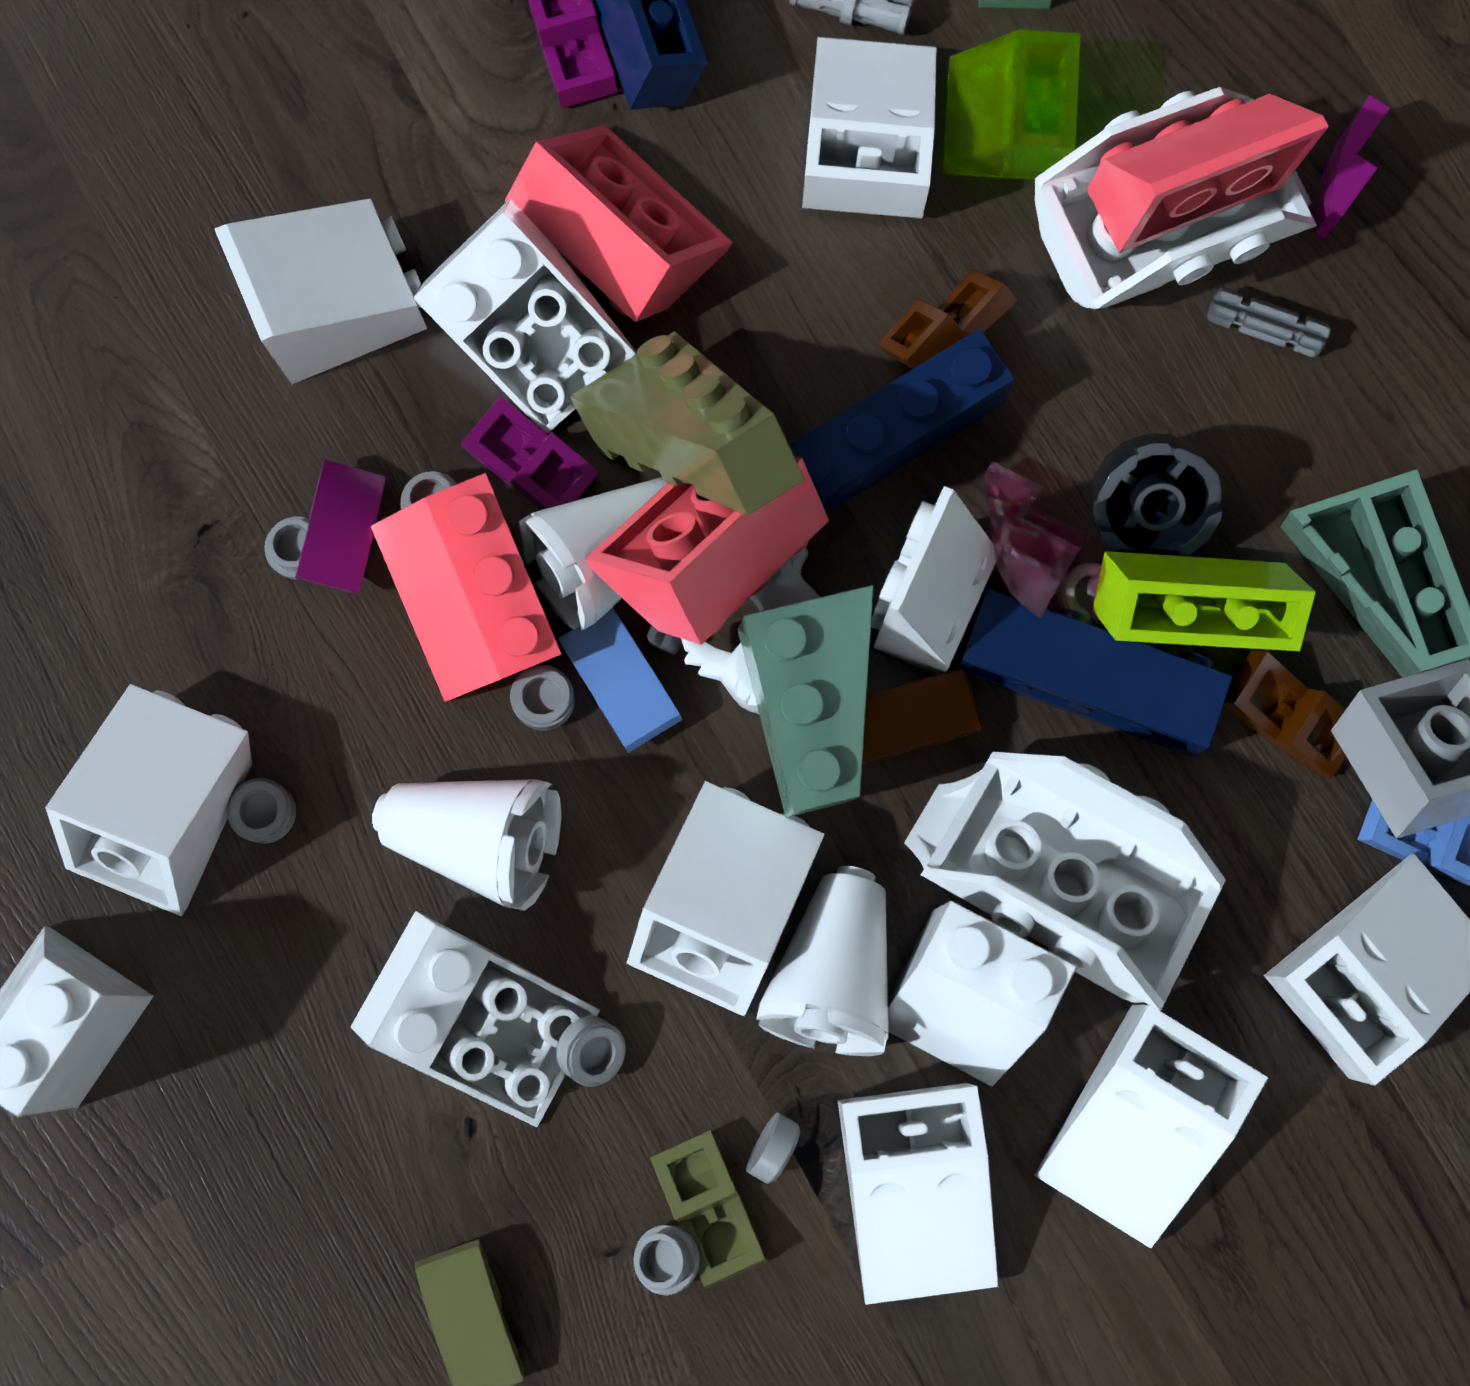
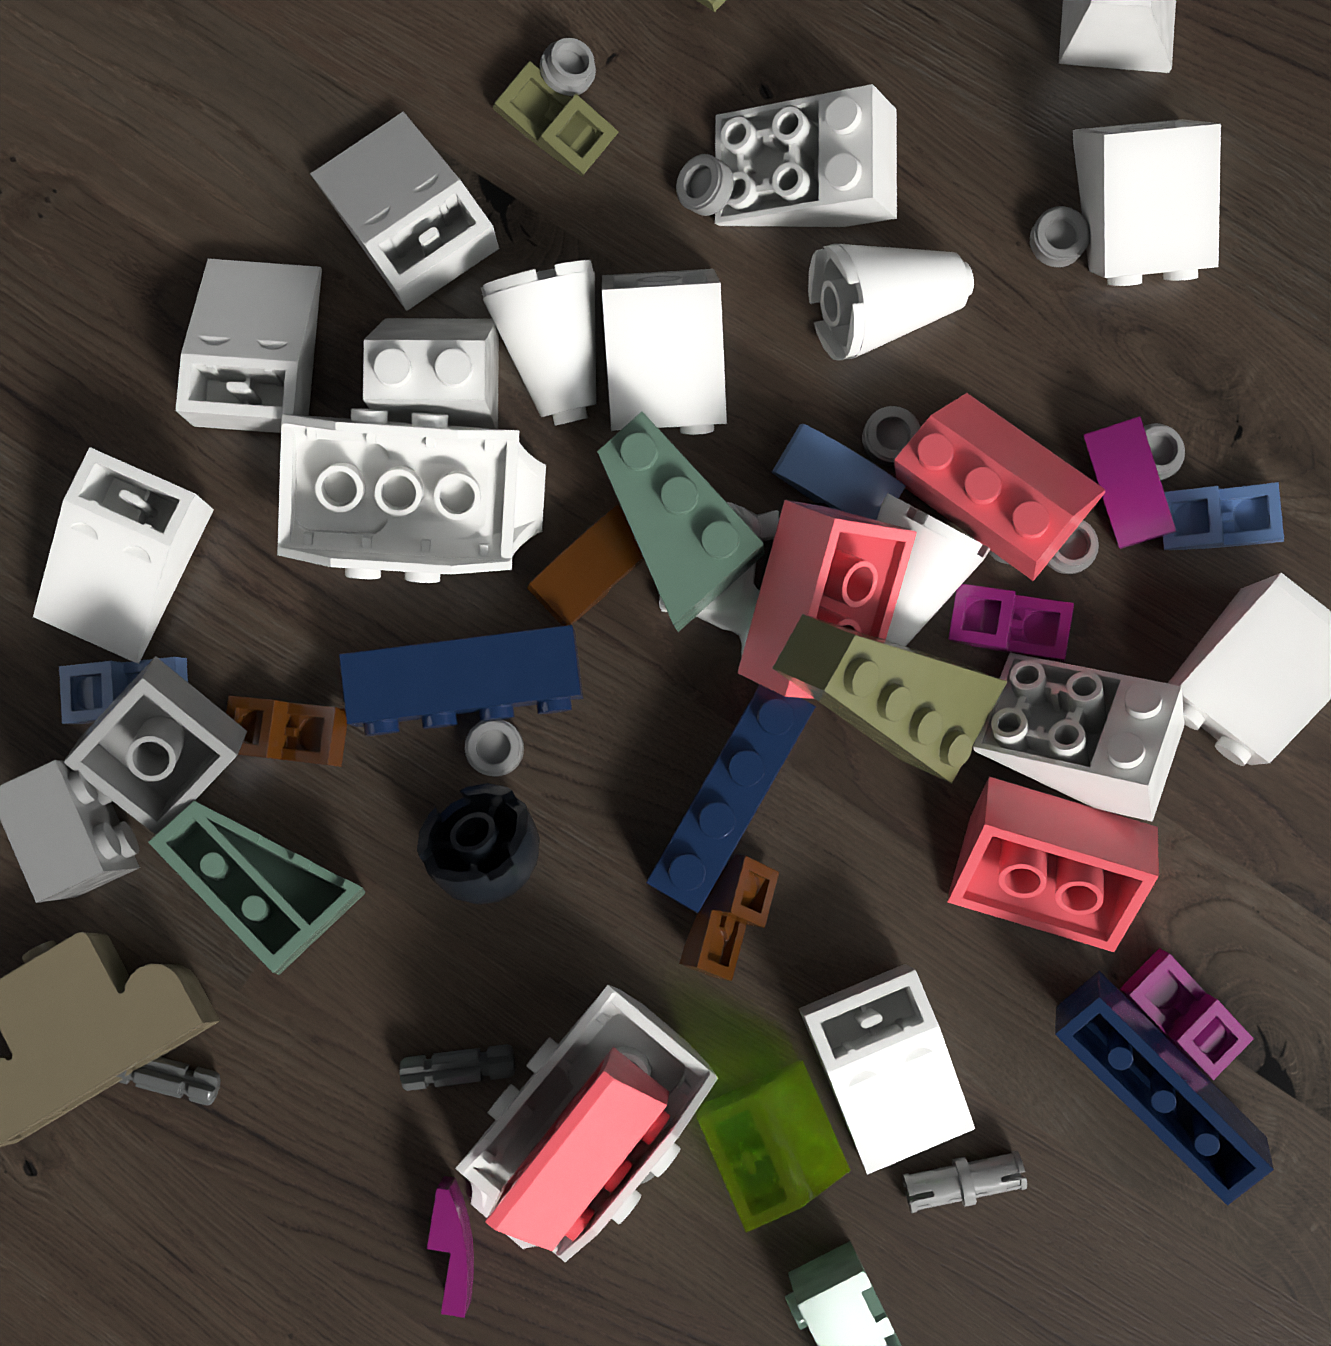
camera: 150 degrees right, 5 degrees up
(267, 452) = (1224, 517): none -> medium blue slope
(773, 1148) = (529, 184): light grey tile -> none
(934, 585) = (618, 666): white slope -> none
(1029, 544) = (567, 757): clear pink slope -> none
(1202, 601) = (400, 774): lime brick -> none

